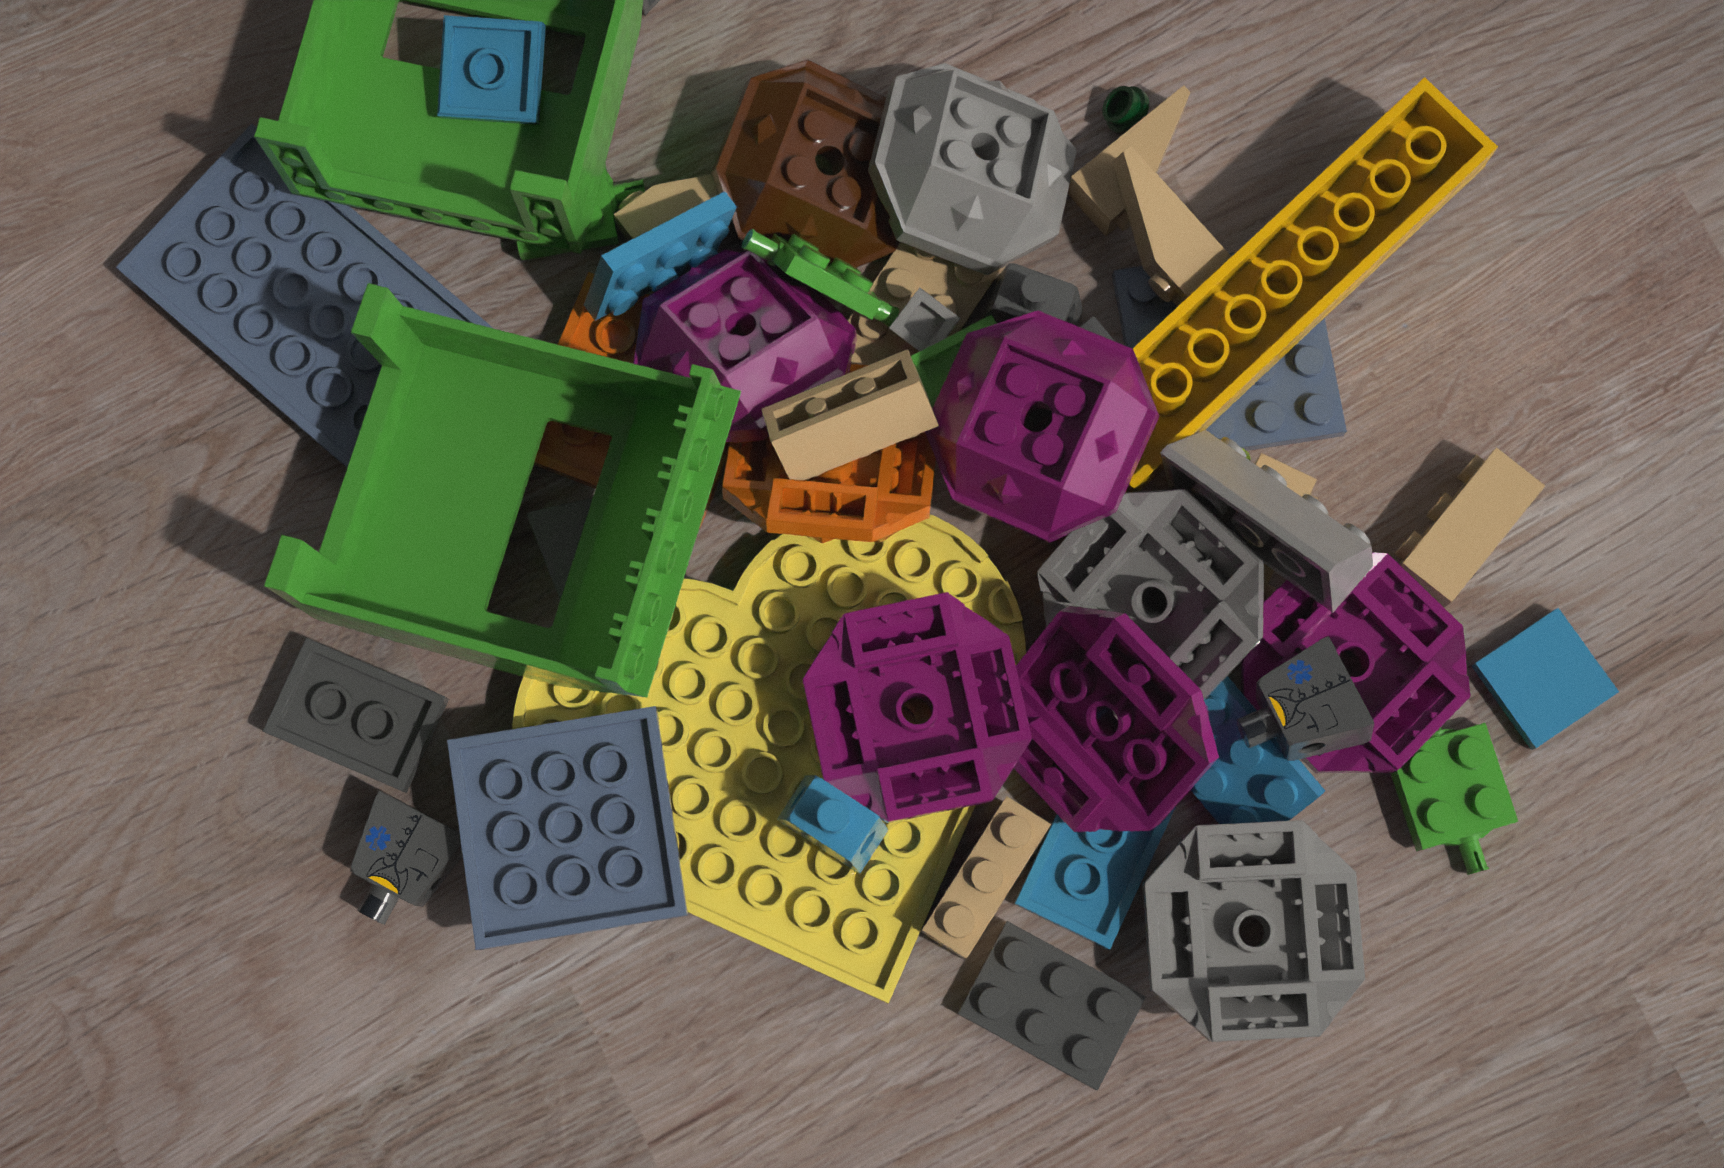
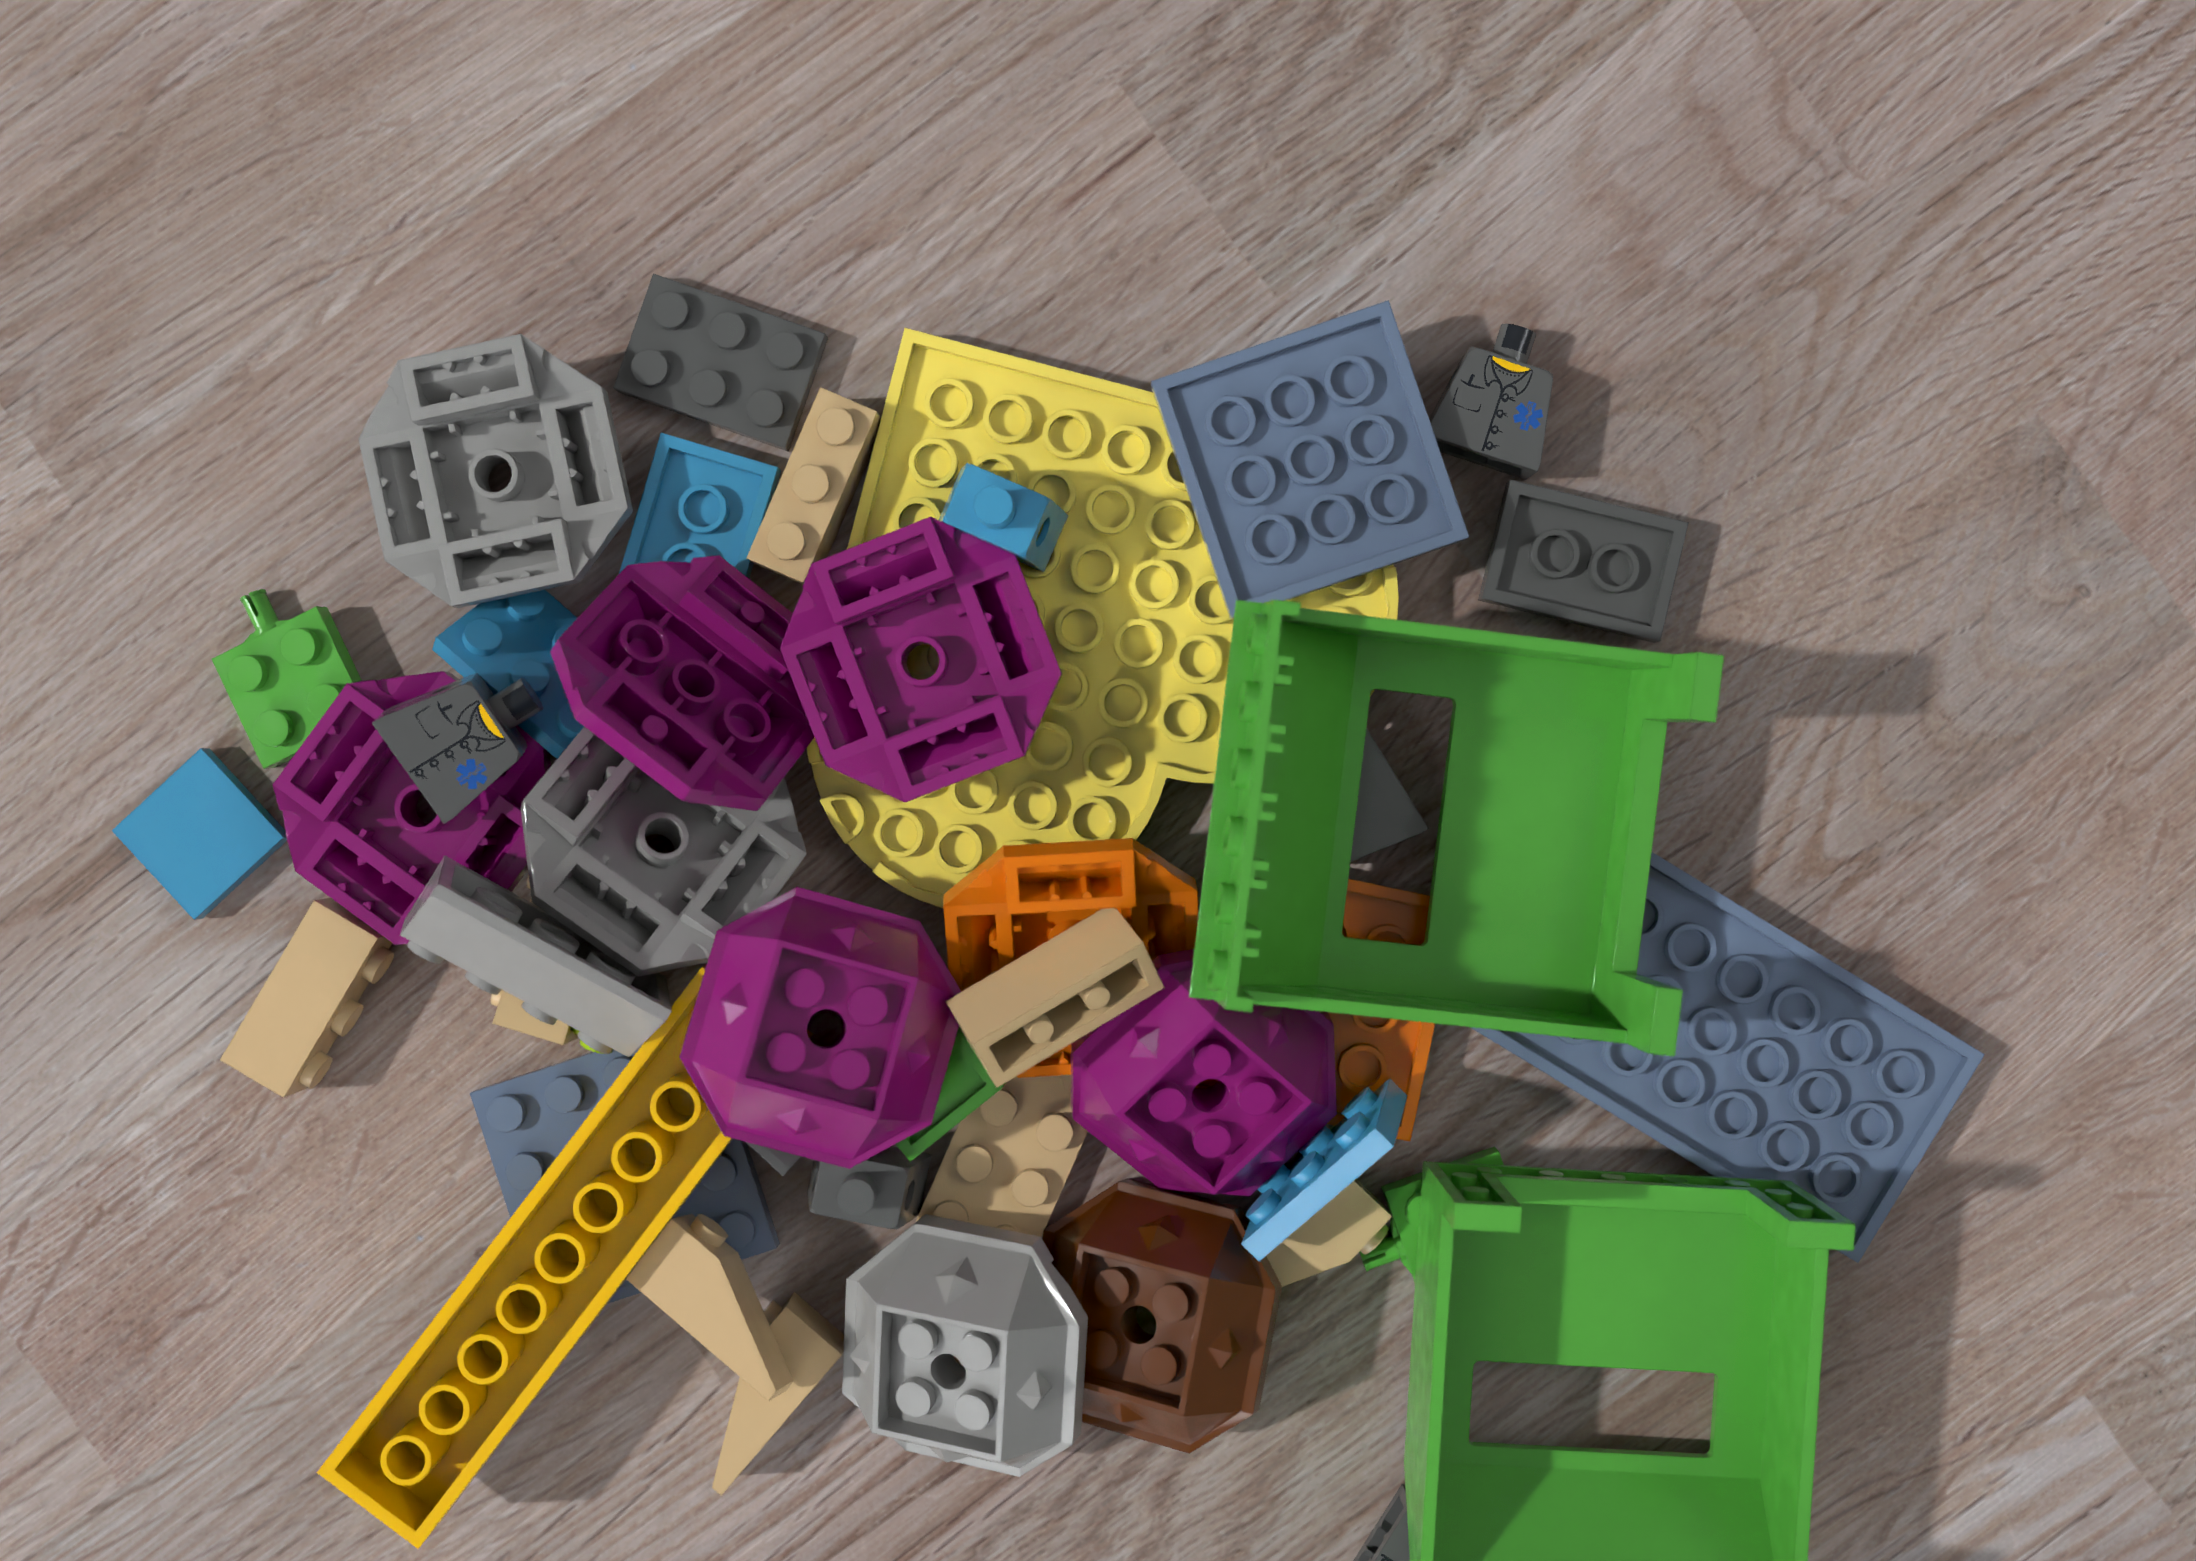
camera: 170 degrees right, 10 degrees up
(491, 70) = (1577, 1376): dark azure tile -> none
(836, 280) = (1116, 1173): bright green plate -> none
(924, 321) = (990, 1140): light grey plate -> none
(1125, 108) = (791, 1455): dark green plate -> none

